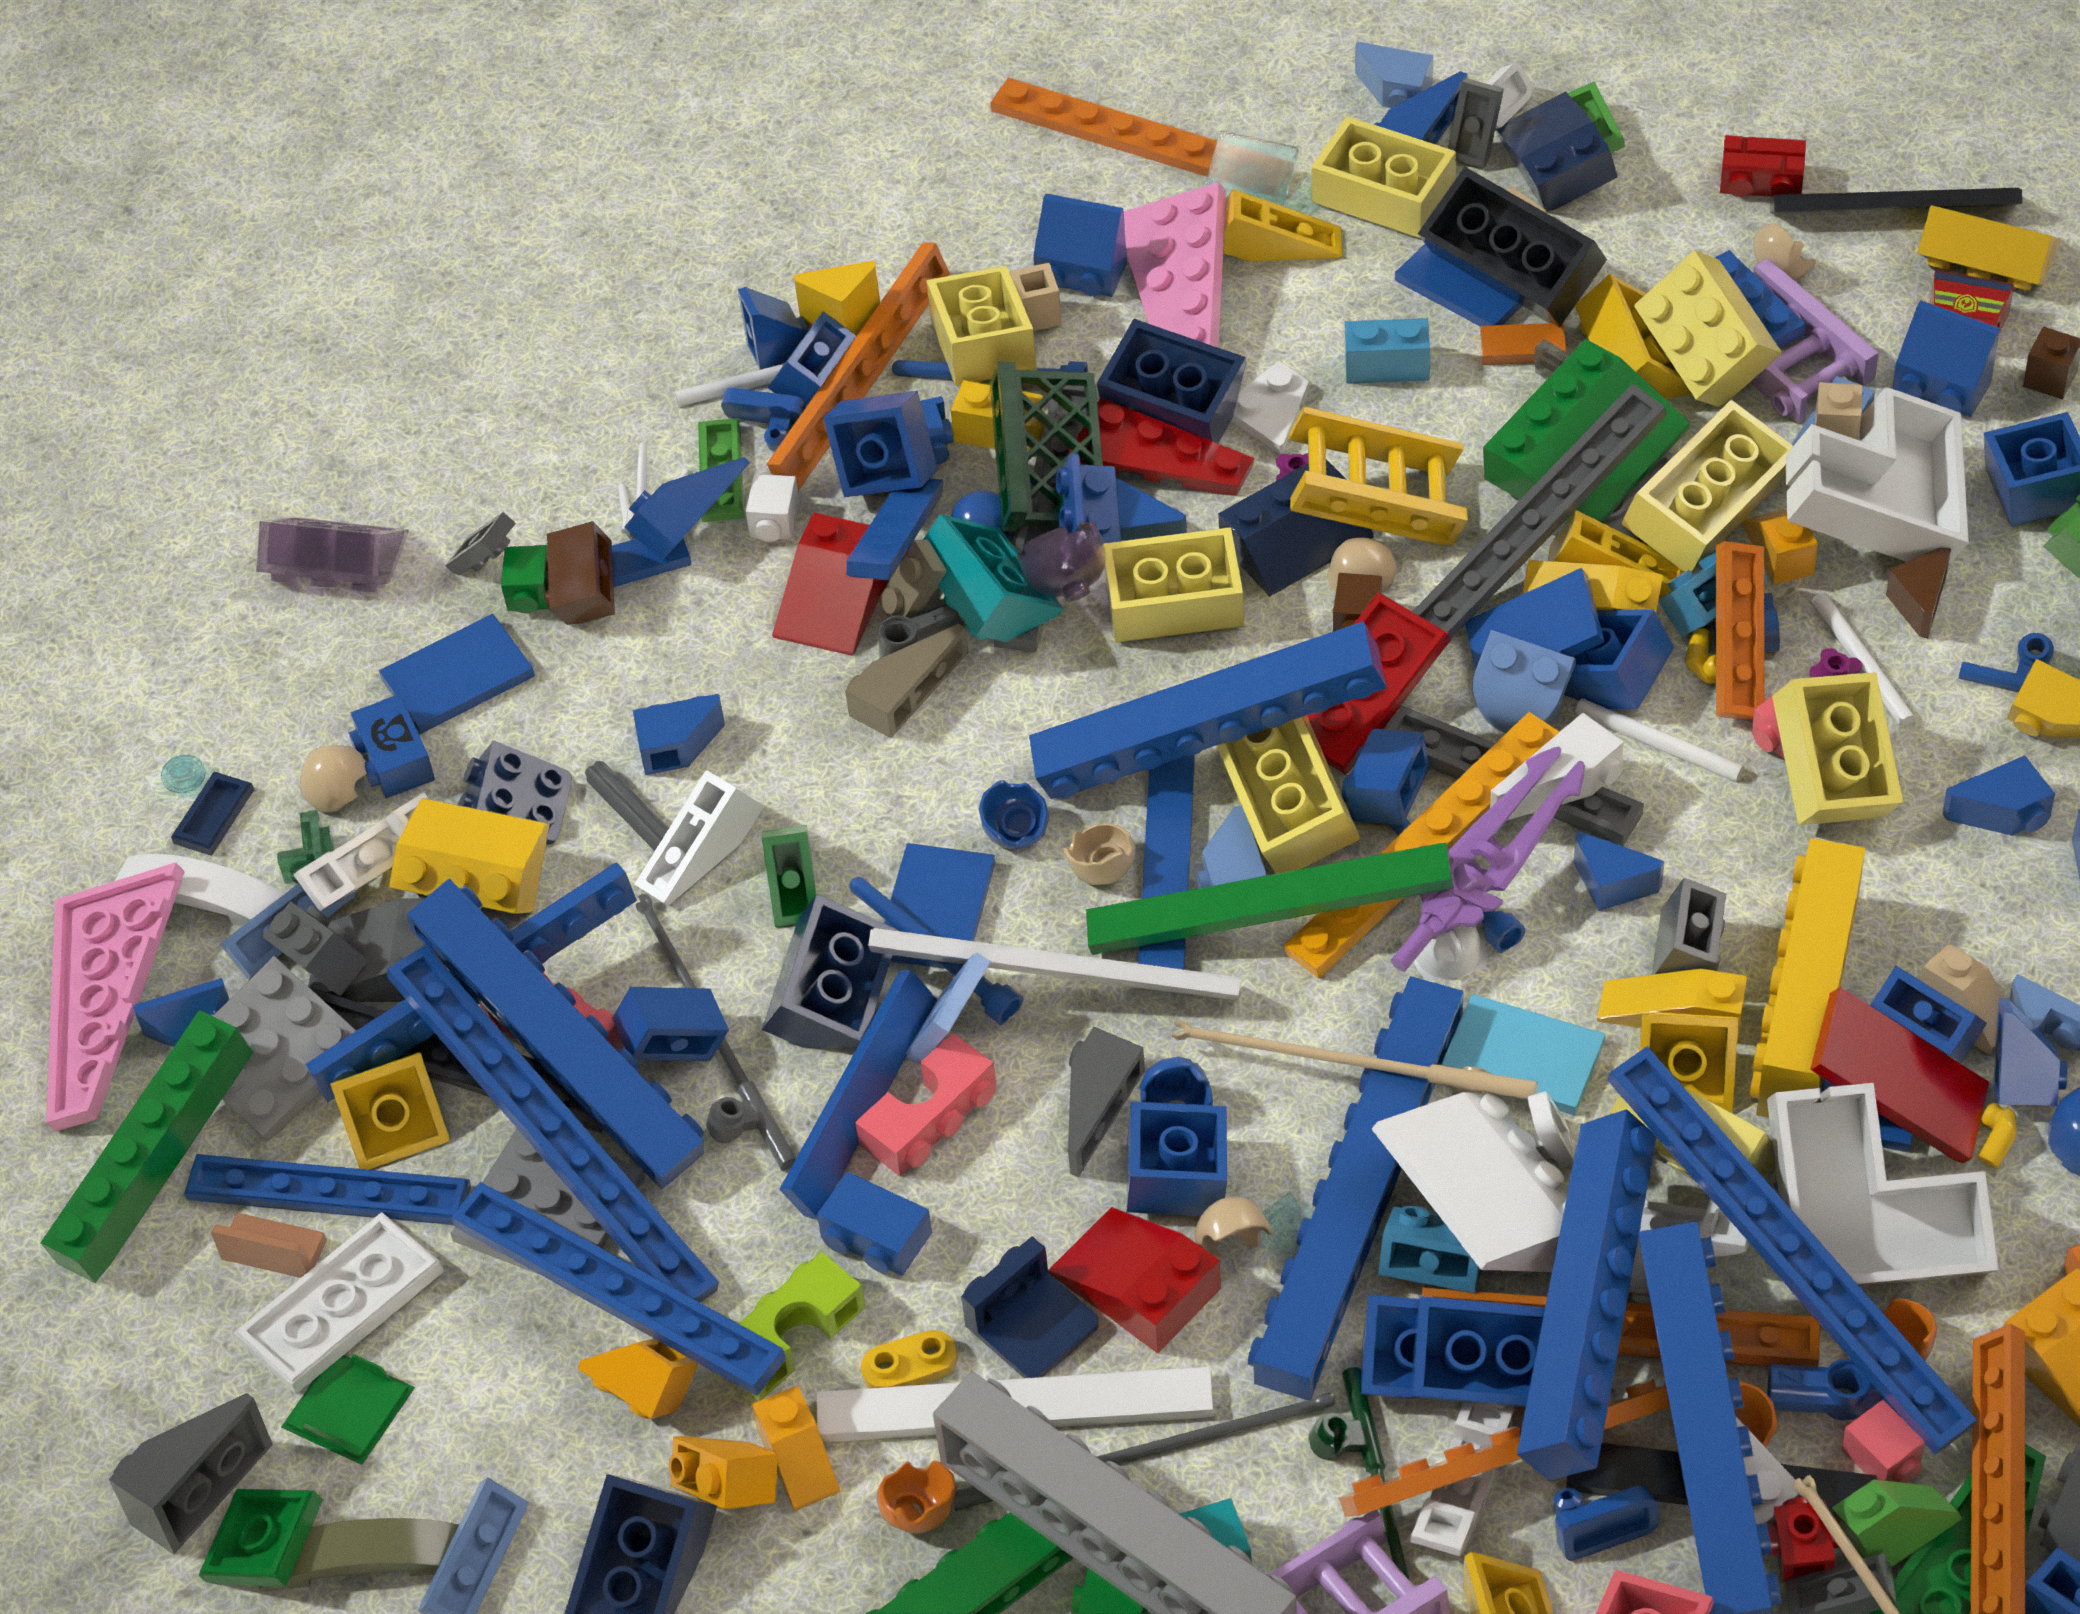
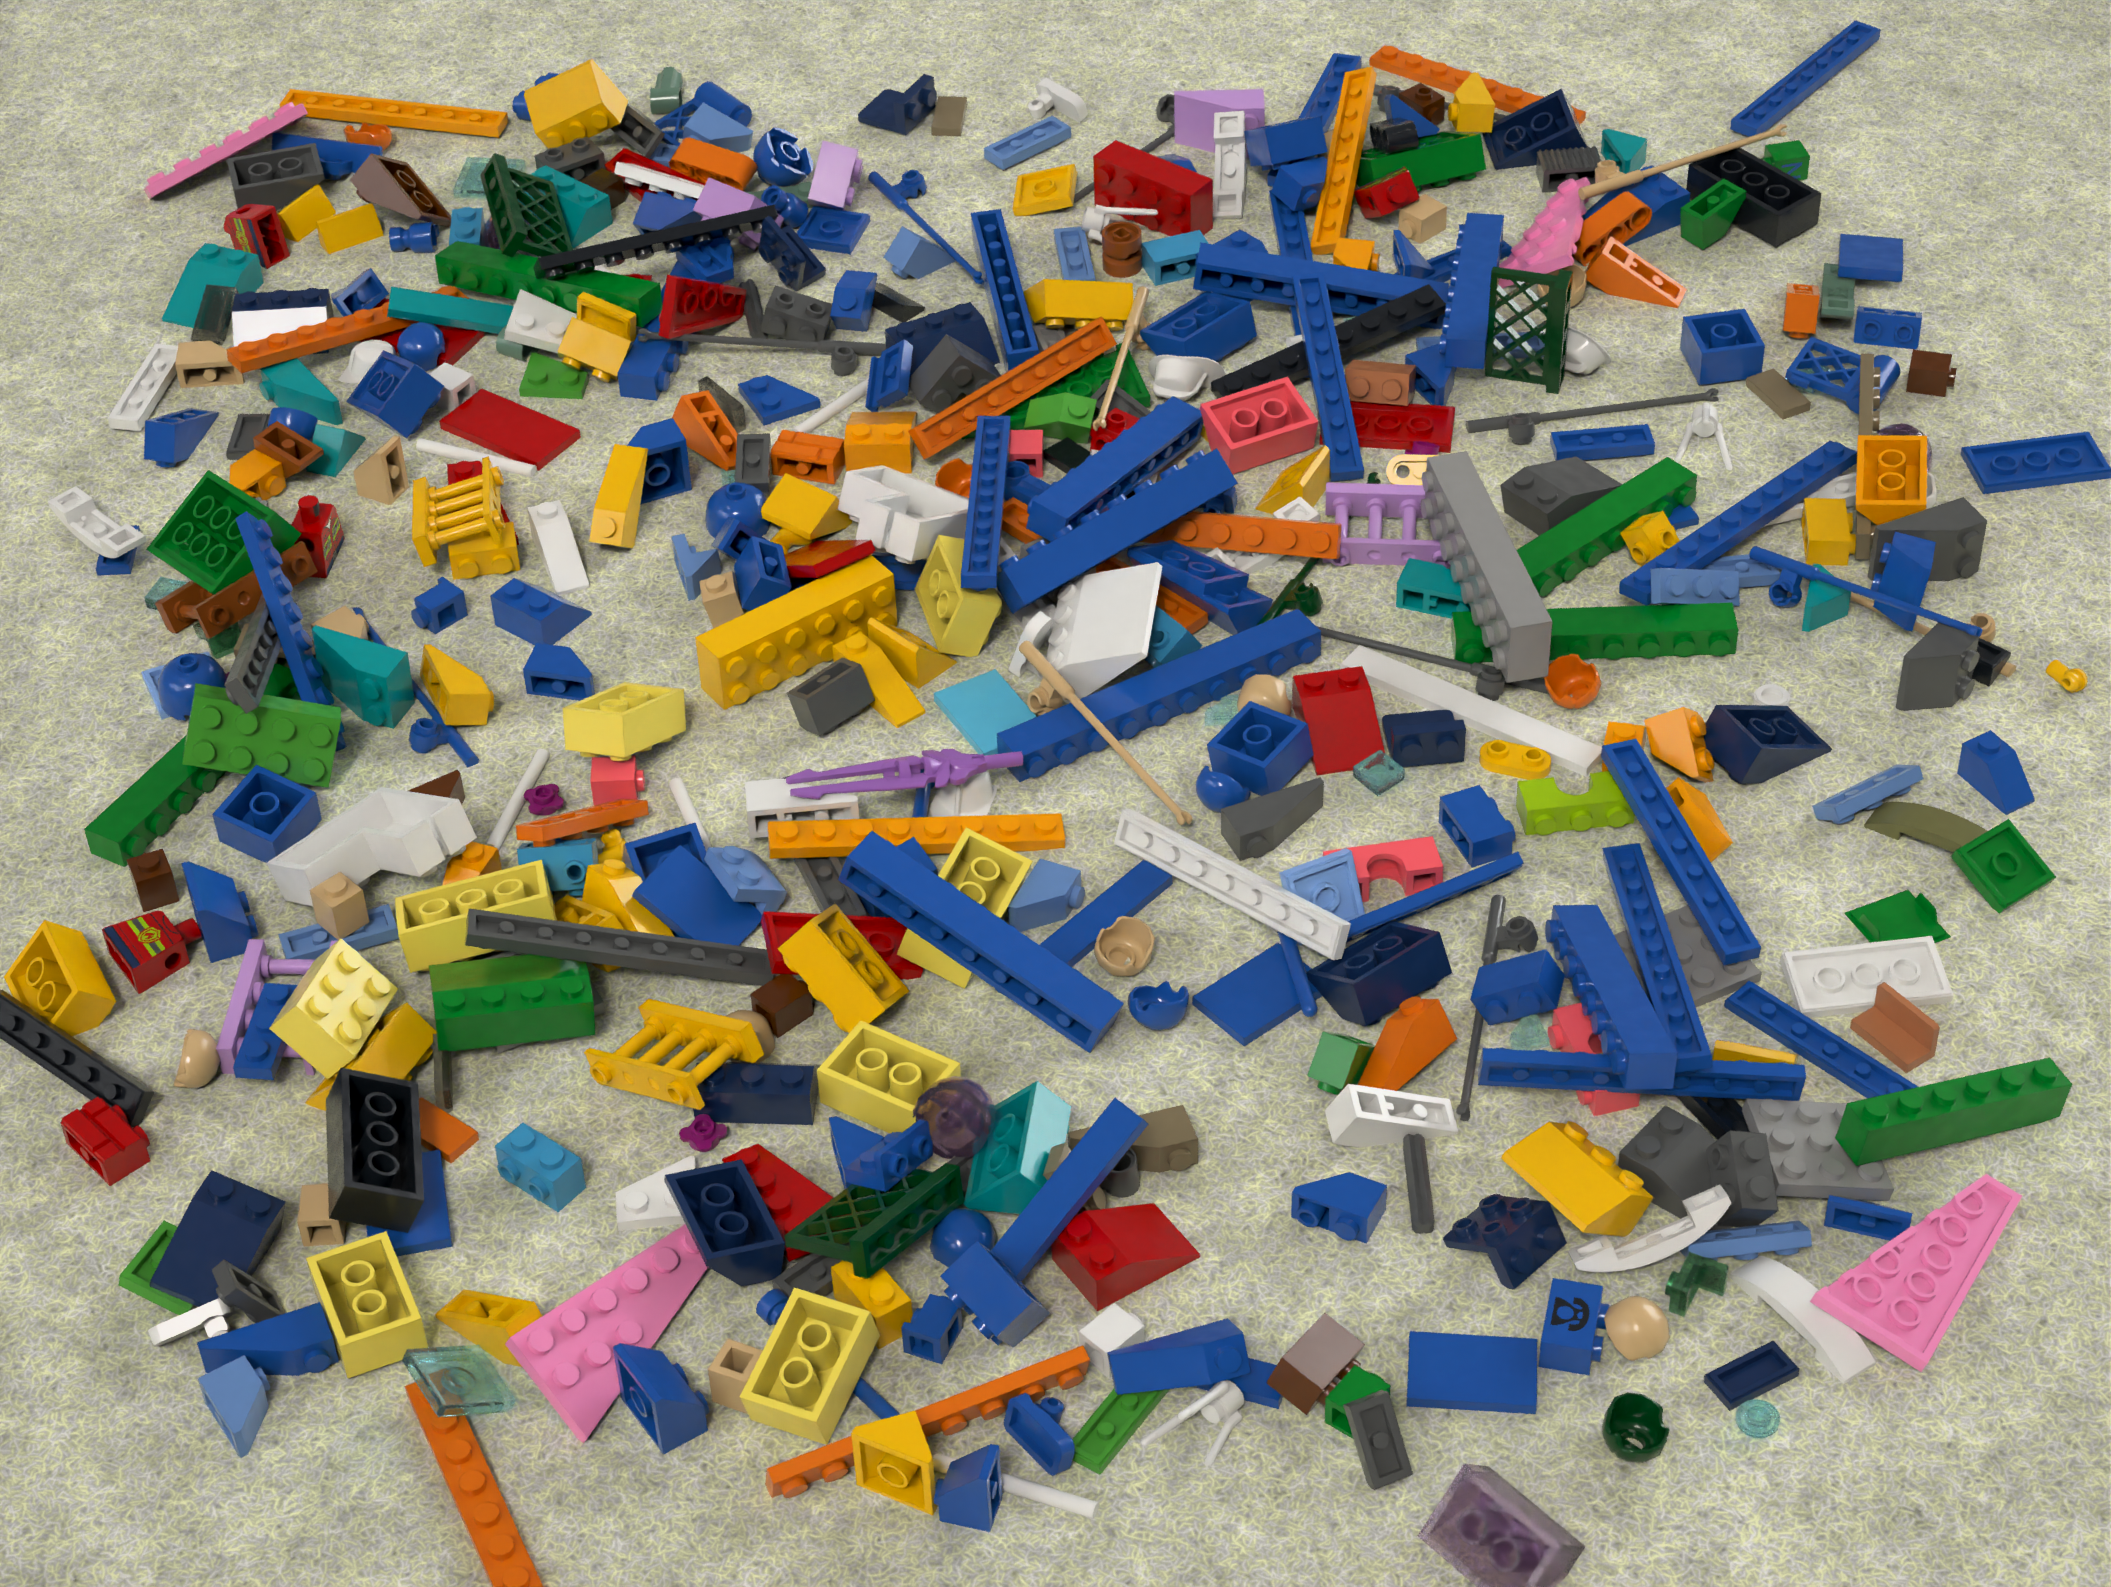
camera: 145 degrees left, 10 degrees down
(189, 1470) = (2033, 902): dark grey slope -> none
(278, 683) = (1635, 1418): none -> dark green hair
(736, 911) = (1408, 1043): none -> orange slope
(812, 359) = (972, 1427): blue slope -> none
(1044, 1226) = (1378, 772): none -> clear light blue plate
(1269, 898) = (1058, 838): green tile -> none
(1313, 613) = (842, 969): none -> yellow slope
(1615, 872) = (823, 753): blue slope -> none
(2026, 1172) = (804, 509): none -> yellow slope

